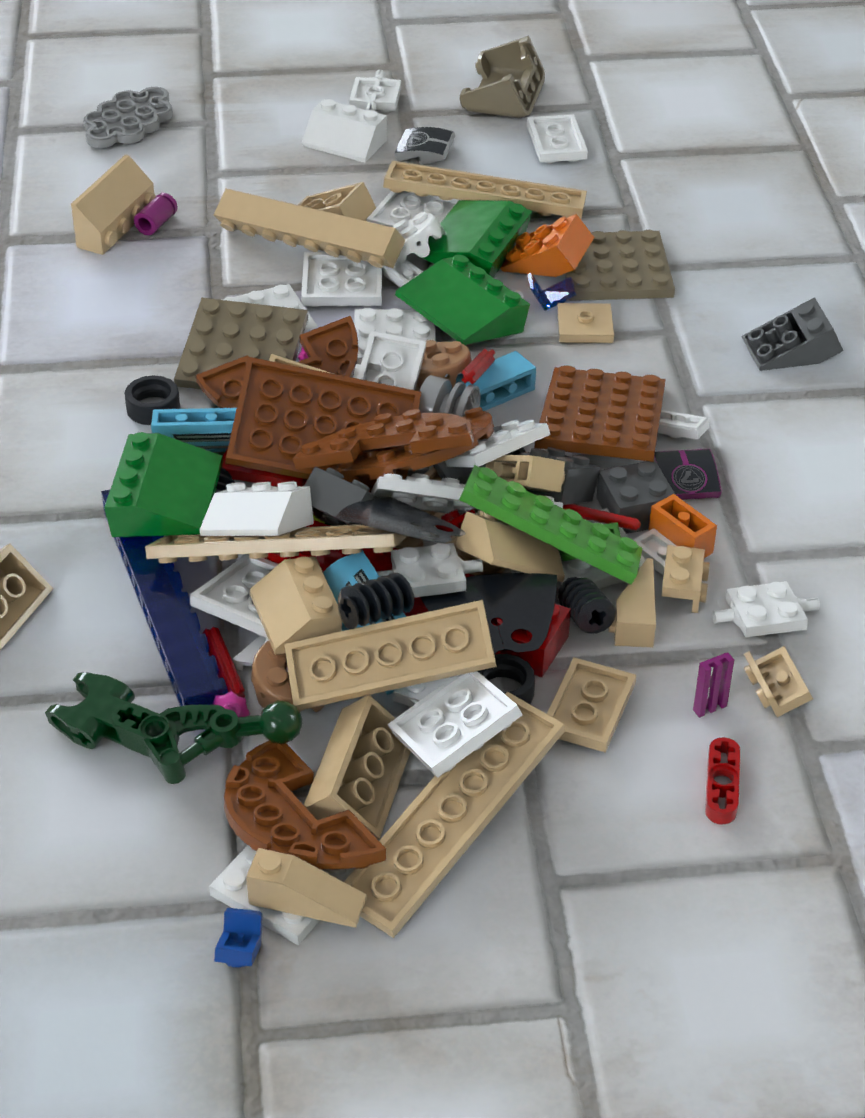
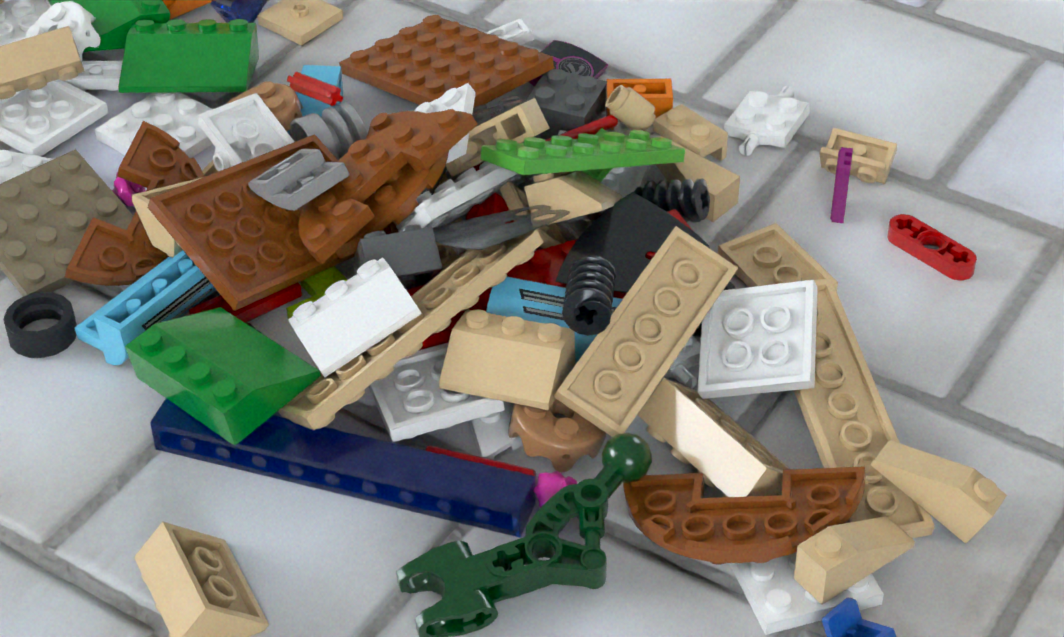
camera: 50 degrees left, 0 degrees up
(349, 407) = (298, 179): none -> light grey slope
(421, 908) = (945, 489): none -> tan slope
(432, 569) = (556, 255): white plate -> none
(654, 524) = (631, 108): none -> tan brick

